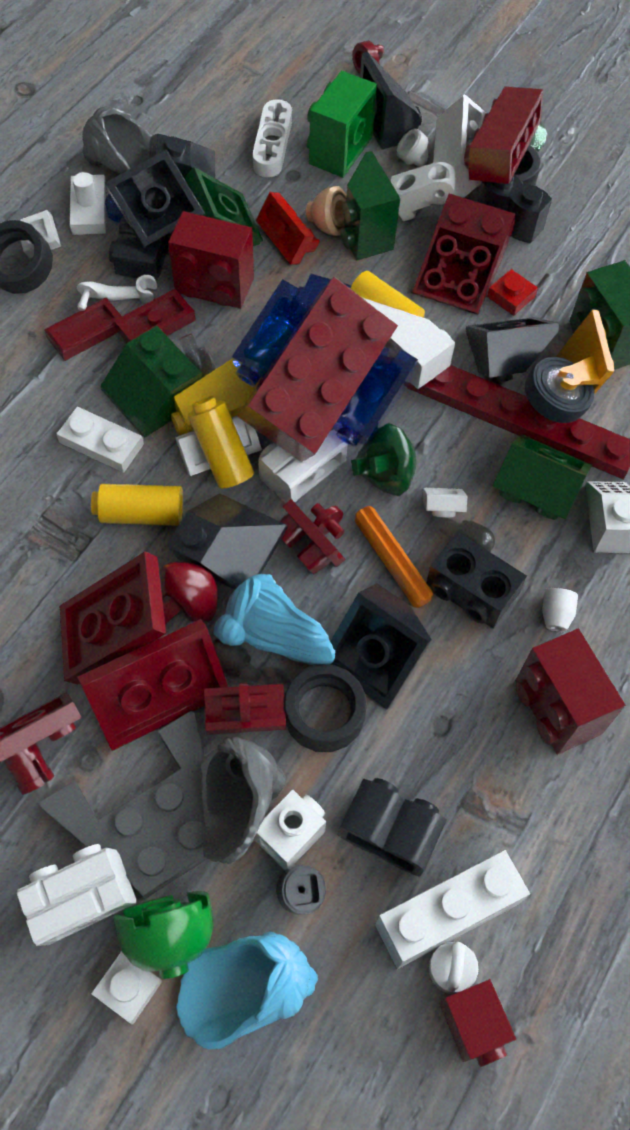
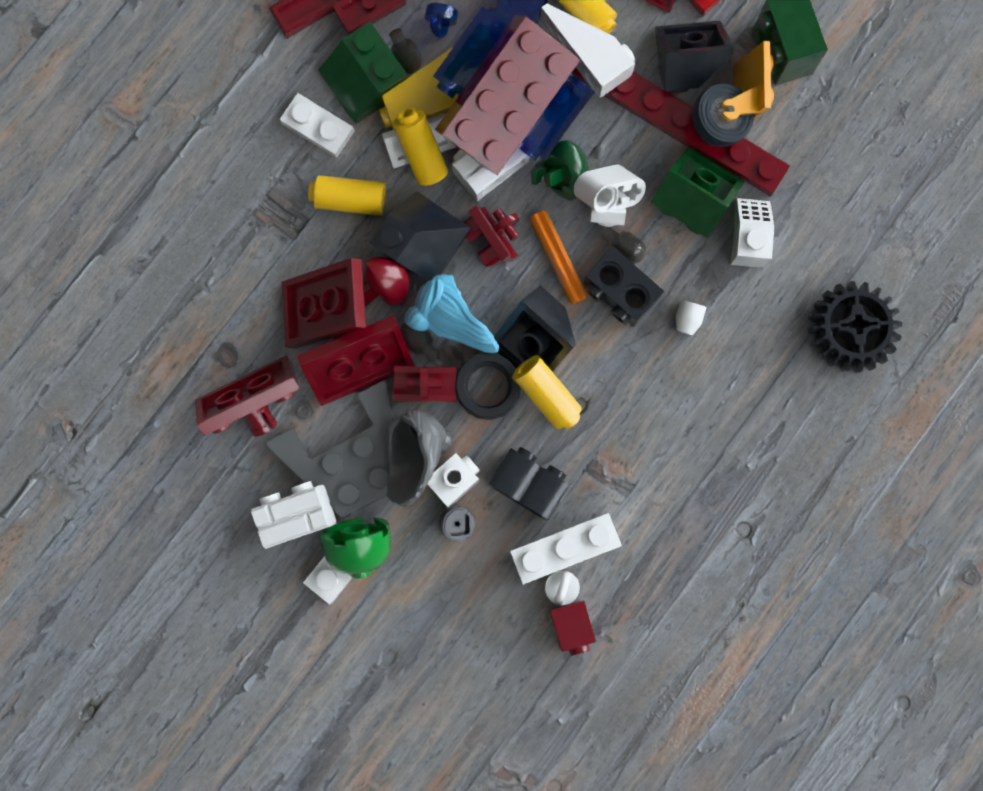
camera: 10 degrees right, 20 degrees up
(233, 325) = (441, 15): none -> clear blue tile
(243, 988) = (409, 589): medium azure hair -> none
(403, 707) = (547, 393): none -> yellow brick
(443, 473) = (609, 188): none -> white beam
(568, 691) = (678, 393): dark red brick -> none

